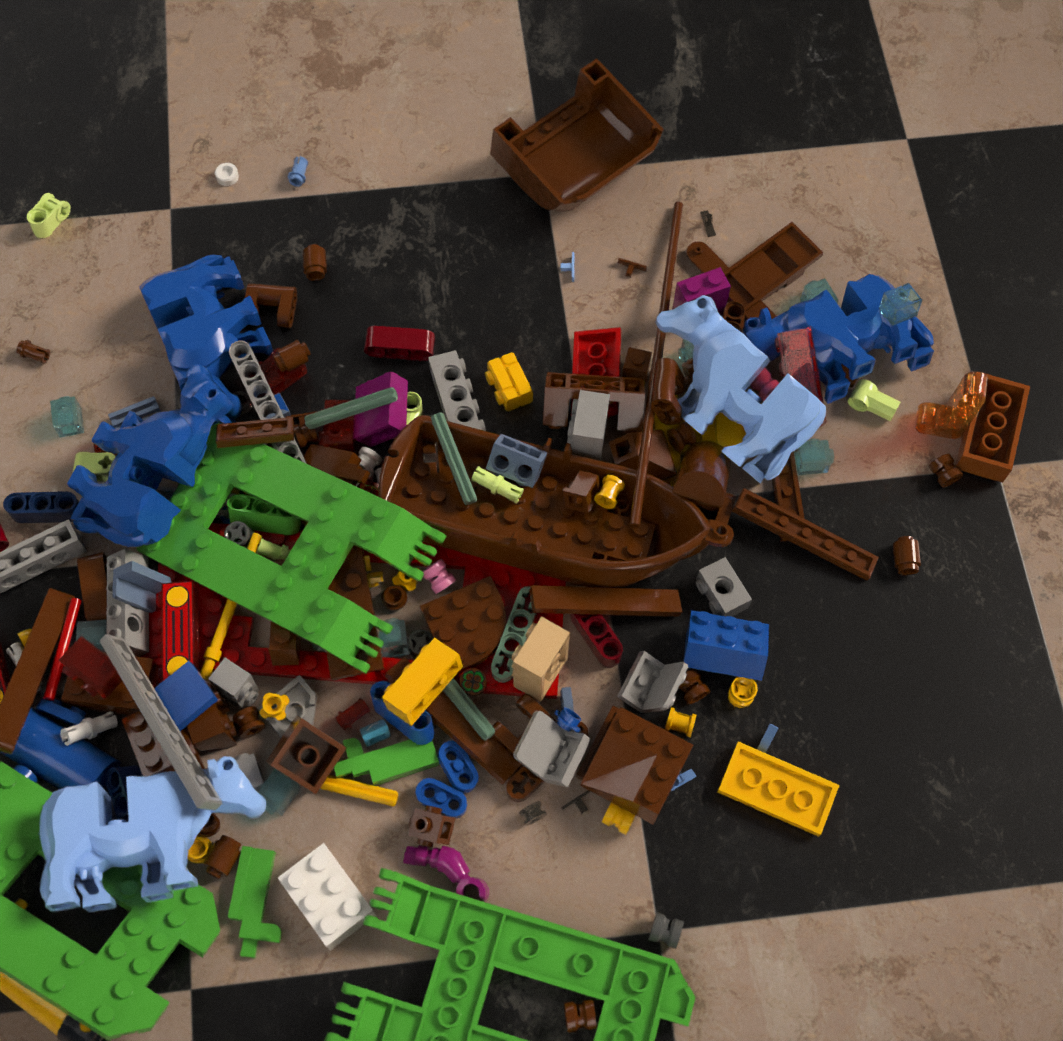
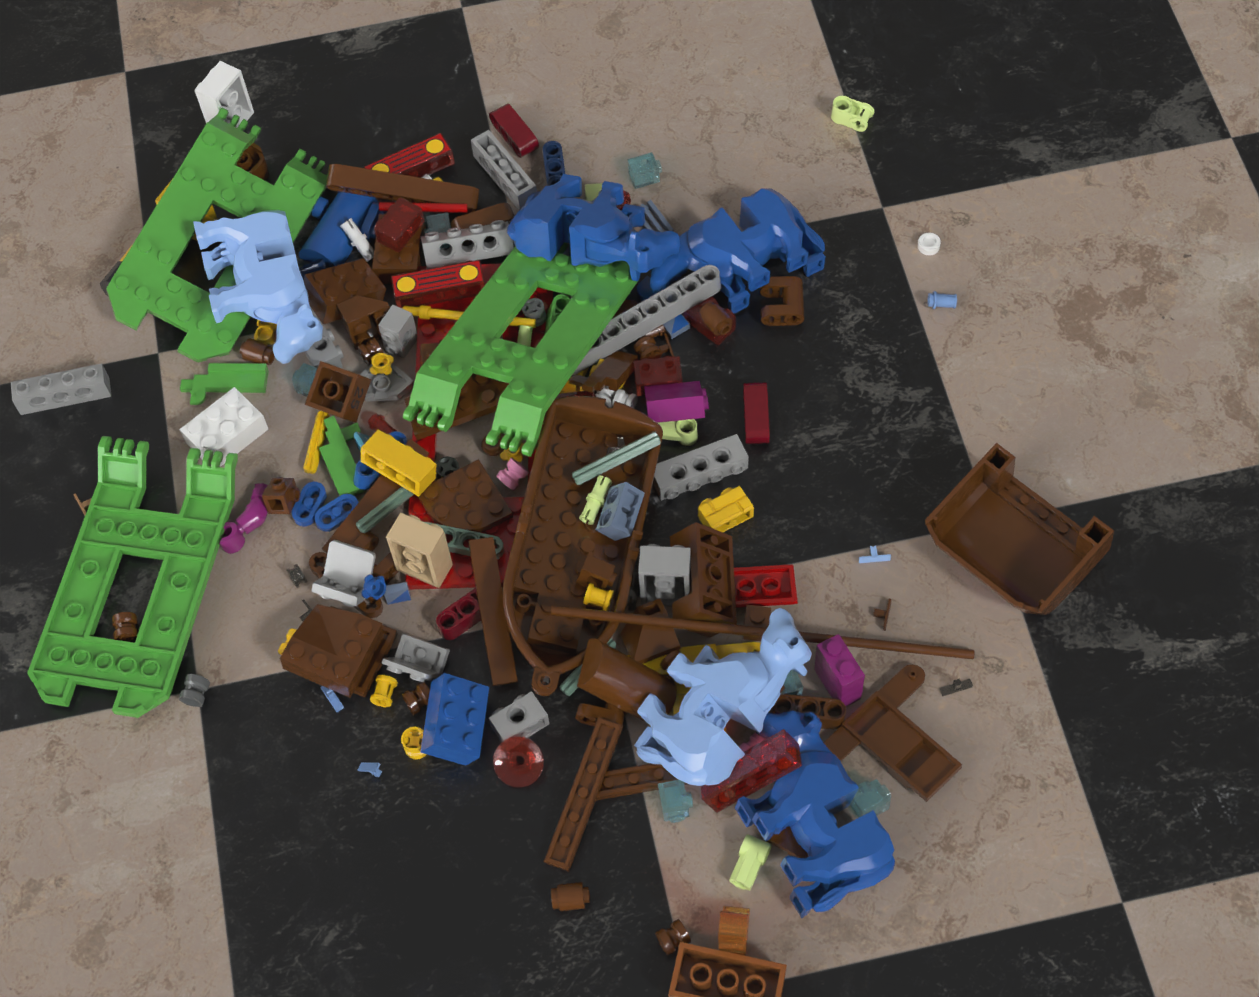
camera: 90 degrees right, 5 degrees down
(29, 350) = (708, 129): reddish brown pin -> none
(138, 585) = (475, 243): sand blue panel -> none
(161, 723) = (345, 271): light grey tile -> none
(185, 695) = (374, 288): blue tile -> none
(255, 432) = (623, 297): reddish brown tile -> none
(314, 262) = (836, 329): reddish brown brick -> none
(351, 408) = (662, 371): sand green axle -> none
(396, 642) = (451, 444): clear light blue brick -> none
(473, 682) = (411, 507): tile -> none
(666, 384) = (711, 629): reddish brown connector -> none
(769, 591) = (510, 770): none -> clear red dish
(778, 789) = (323, 780): yellow plate -> none
(900, 304) = (839, 854): clear light blue brick -> none

